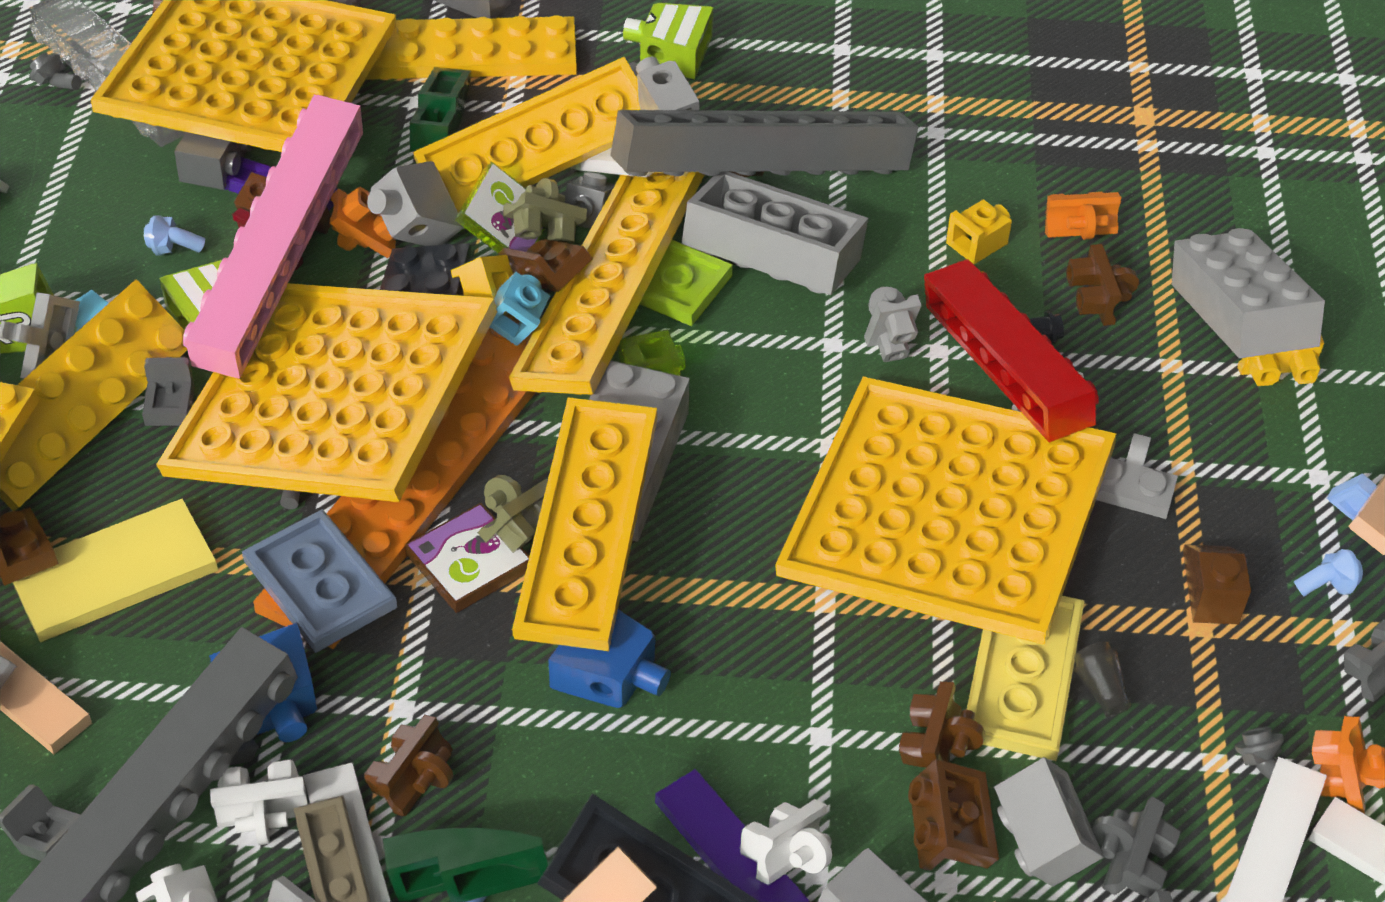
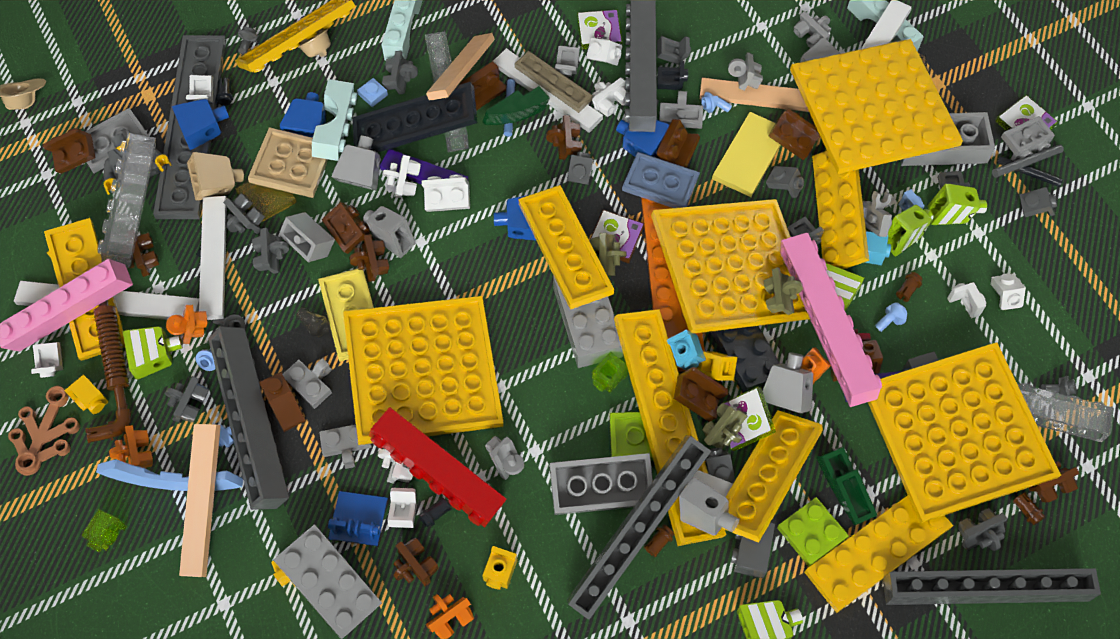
camera: 150 degrees right, 15 degrees up
(40, 204) = (971, 298): none -> white bracket
(84, 681) = (710, 101): none -> light blue plate
(92, 762) = (672, 78): none -> black bracket
(100, 261) = (911, 283): none -> reddish brown pin
(107, 490) = (787, 179): none -> dark grey bracket
(152, 692) = (690, 115): none -> light grey plate
(215, 626) = (677, 144): none -> reddish brown bracket
(322, 281) = (785, 291): none -> olive hips
(431, 693) = (580, 168): none -> dark grey bracket
(519, 83) = (812, 532): none -> lime plate
(722, 771) = (446, 193): none -> white bracket
(878, 749) = (390, 229): none -> light grey torso
(1087, 346) = (402, 507): none -> white bracket
(1156, 592) = (309, 382): none -> light grey plate
(1158, 376) = (357, 518): none -> blue hinge
(1288, 579) = (248, 419): none -> dark grey brick
(1327, 714) = (205, 360): none -> light blue plate

